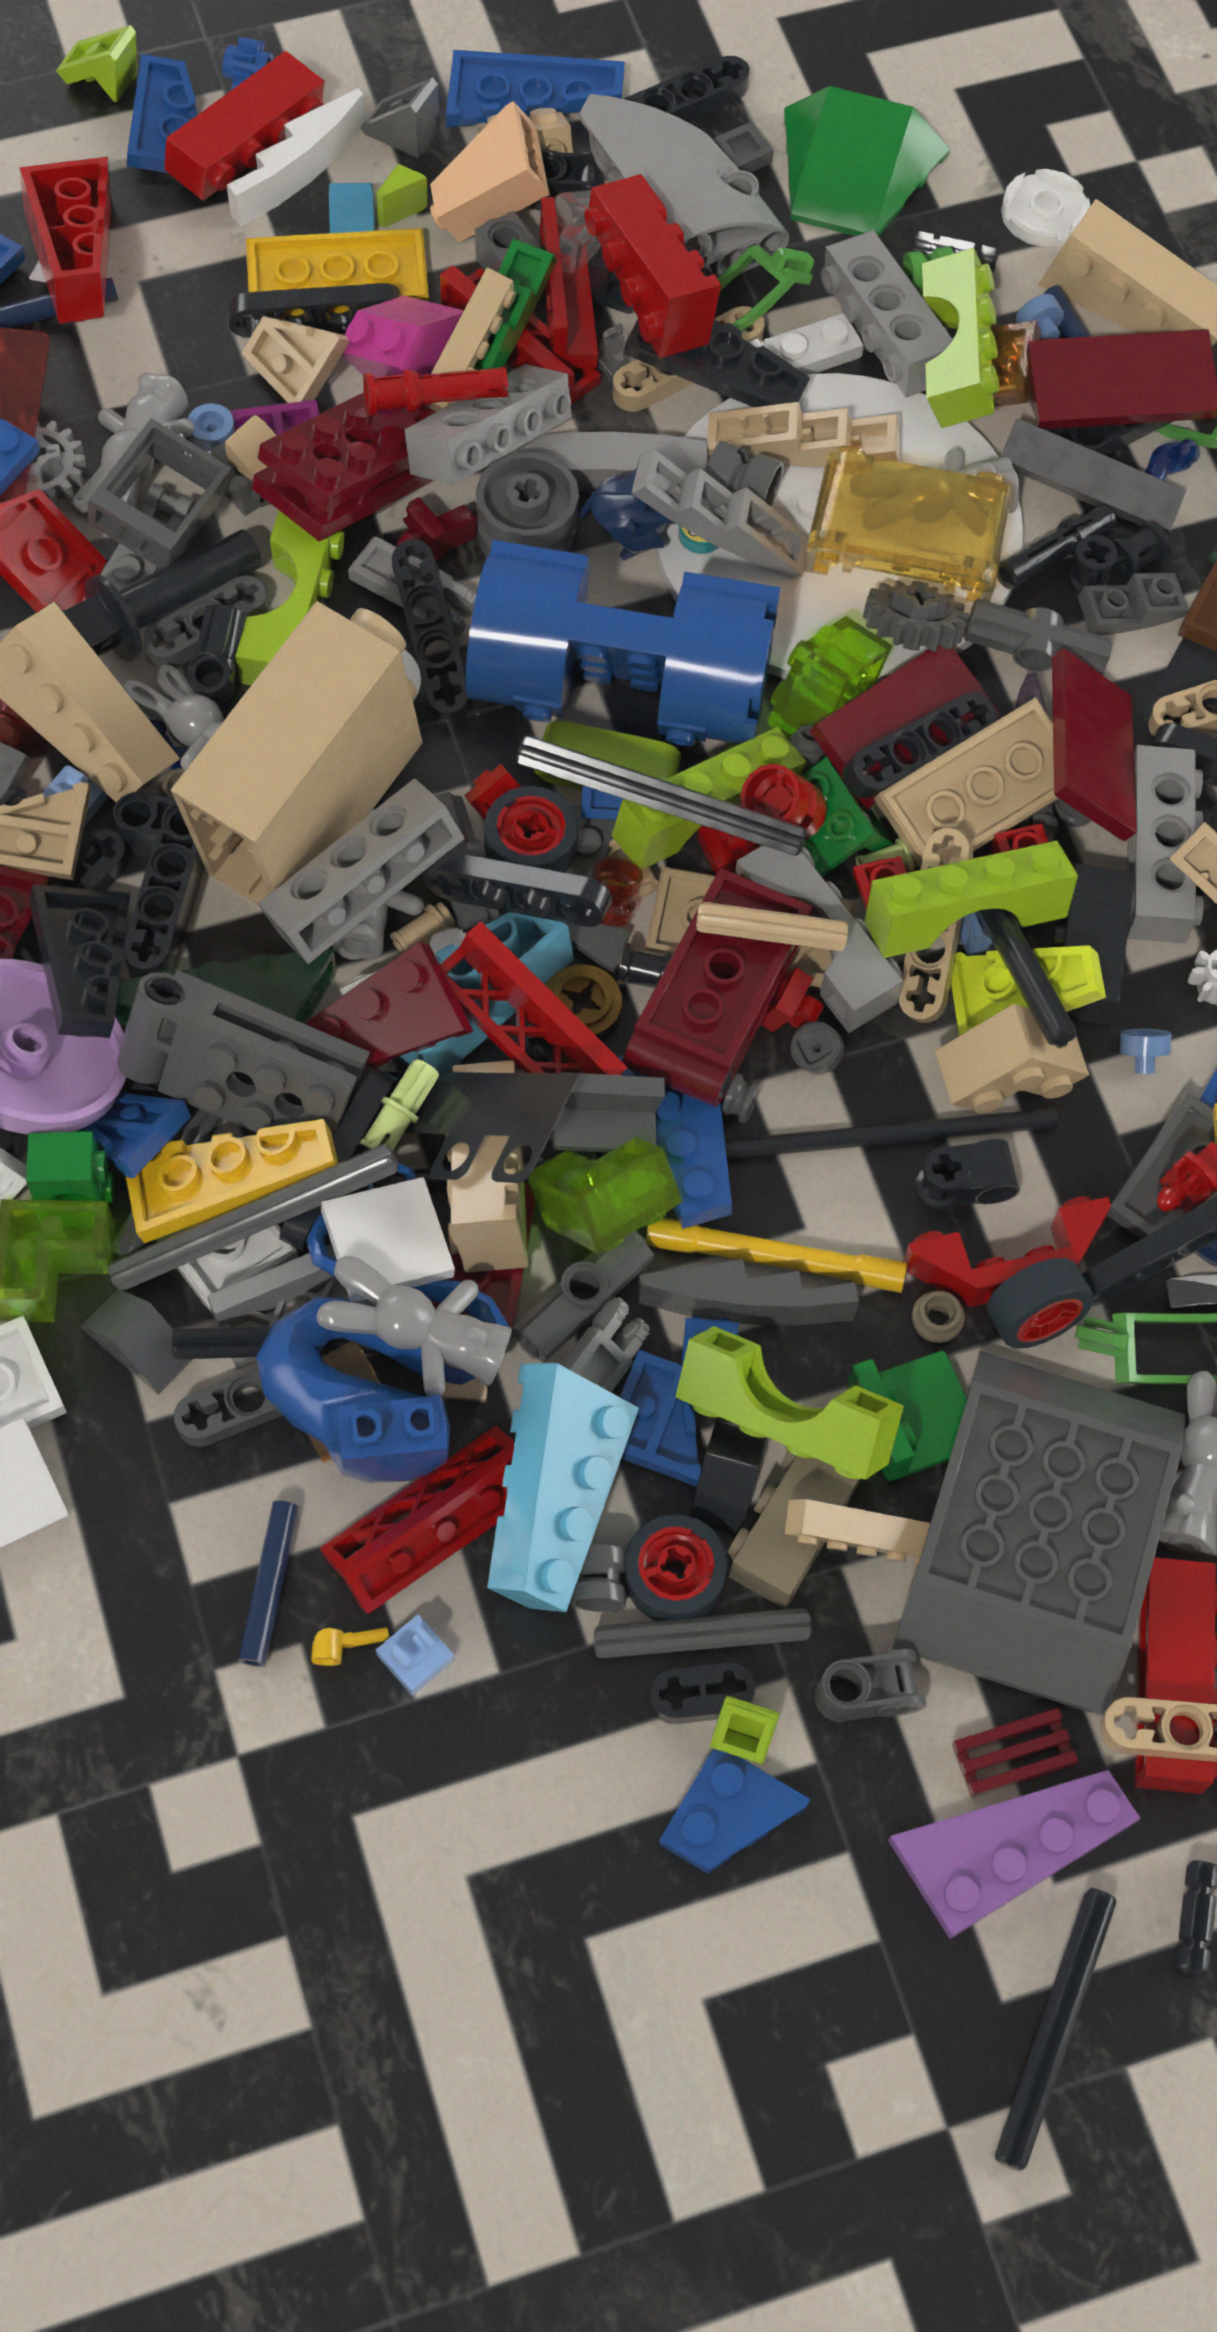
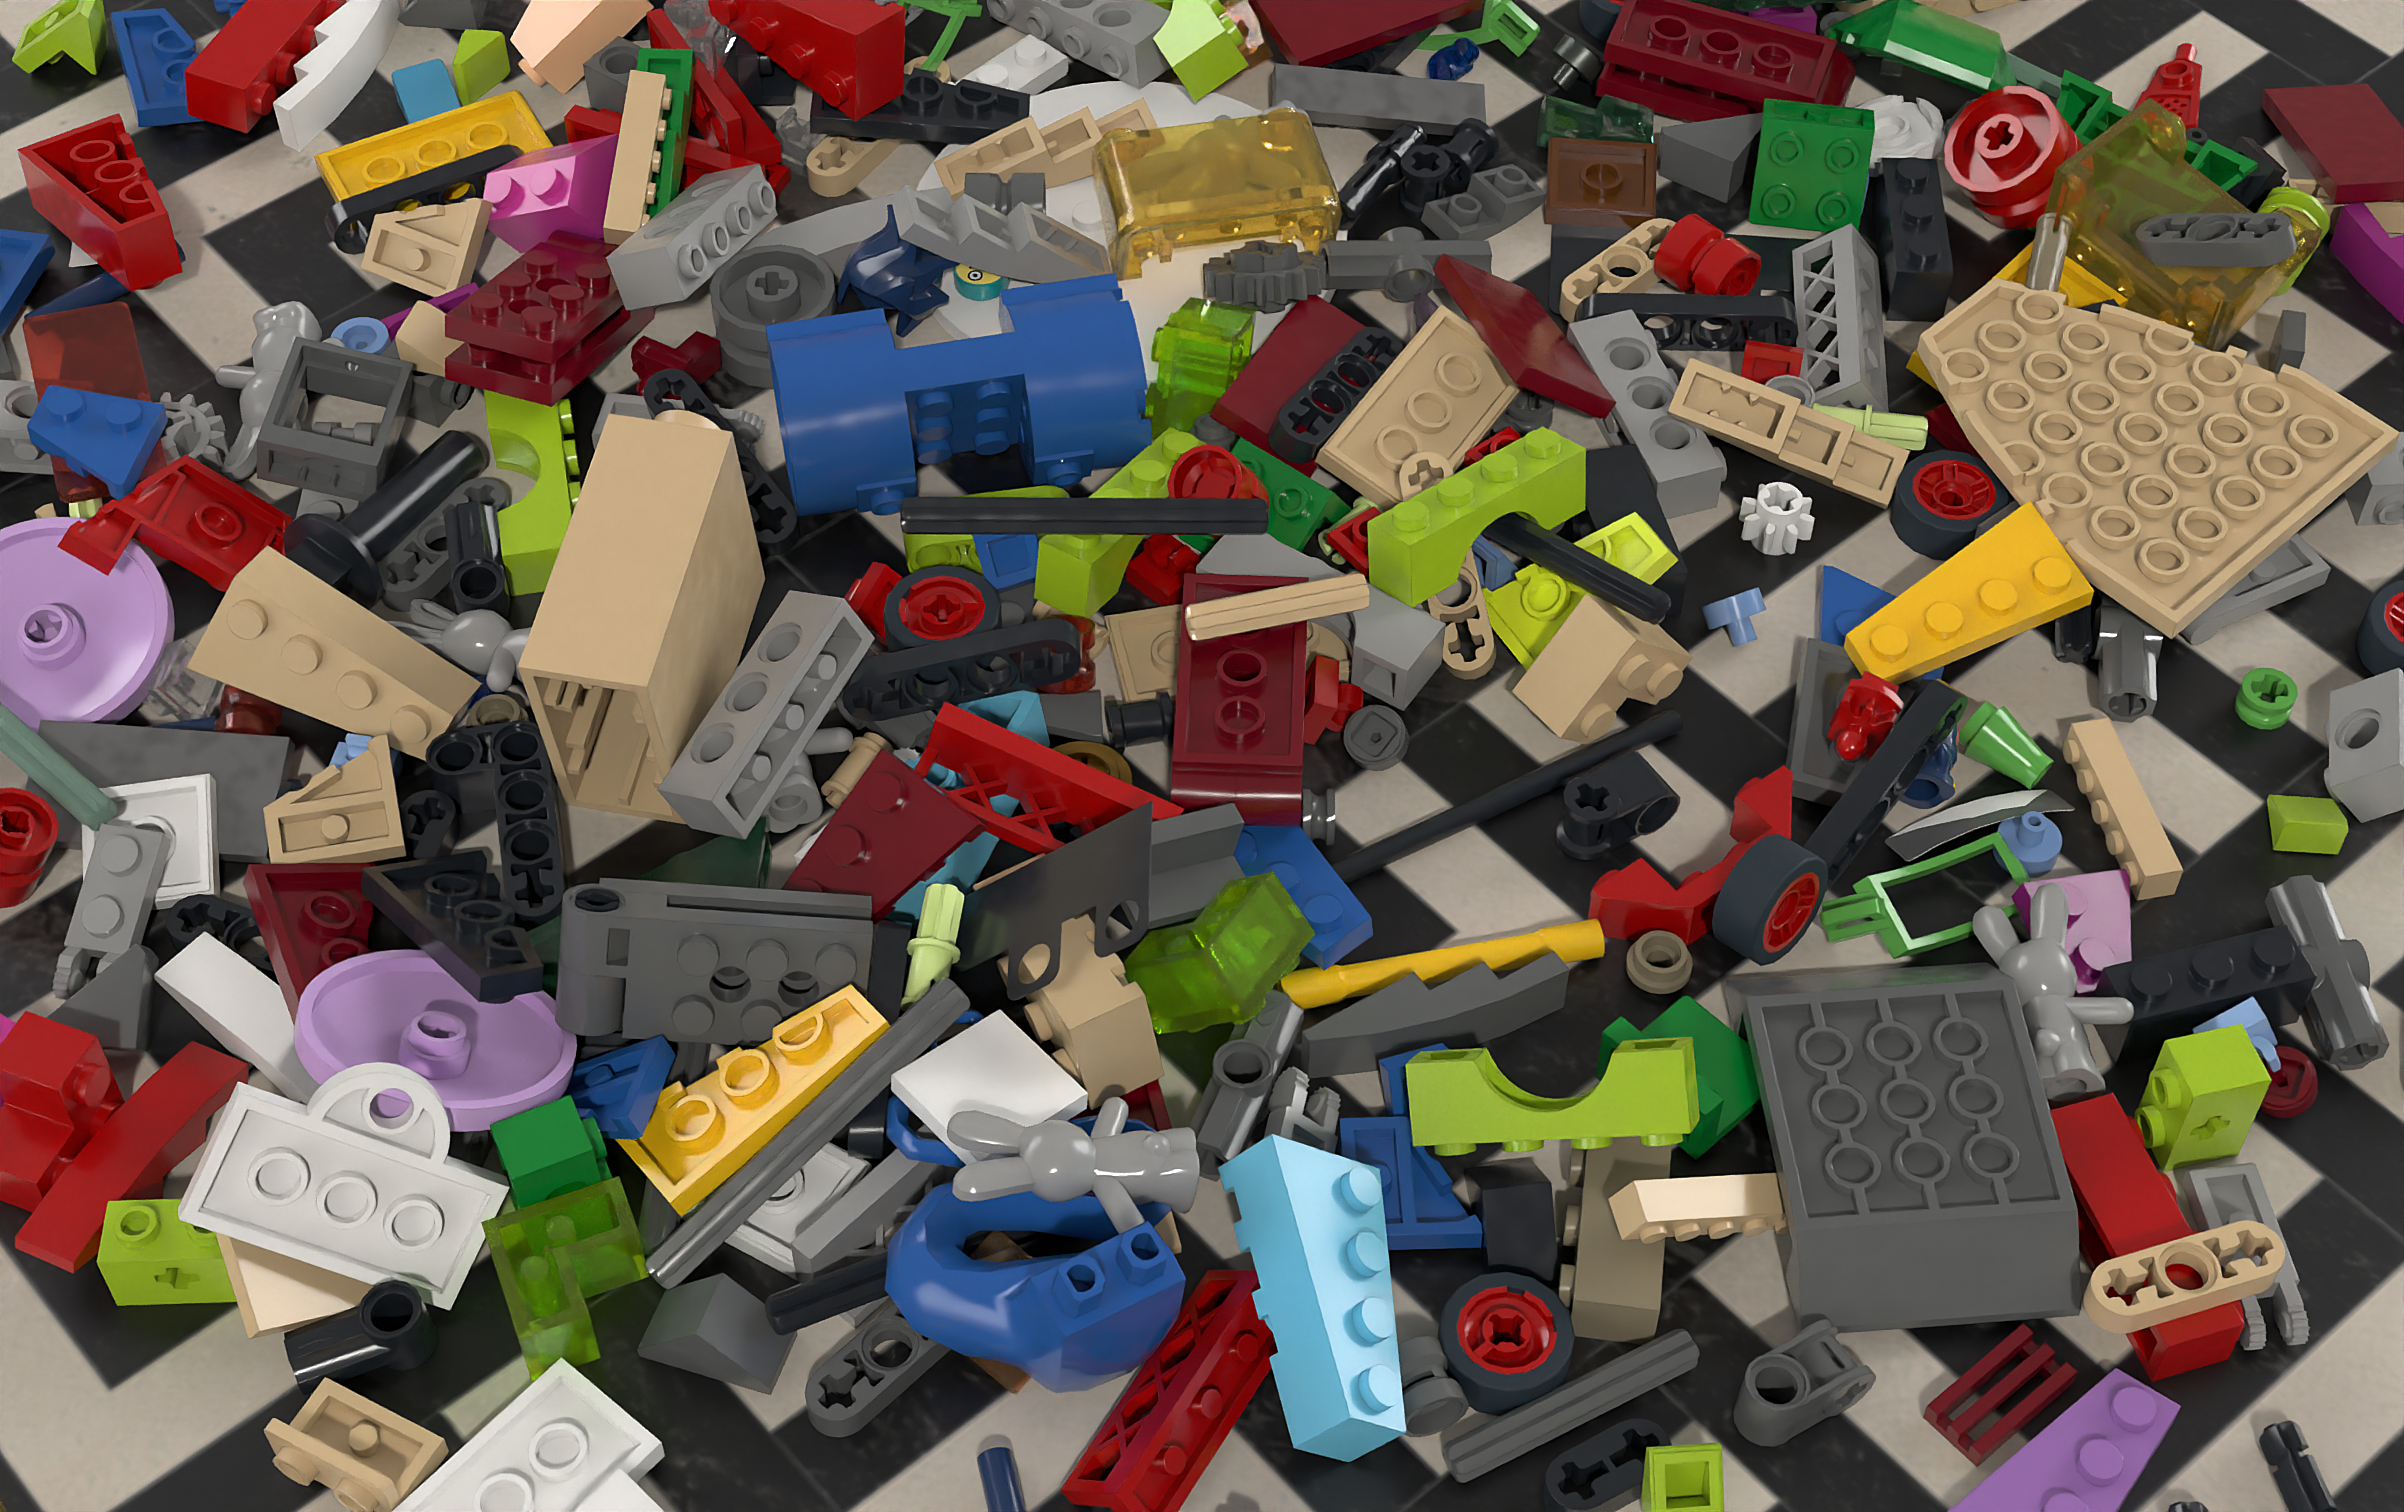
camera: 20 degrees left, 15 degrees down
(414, 390) = (596, 218): red pin -> none

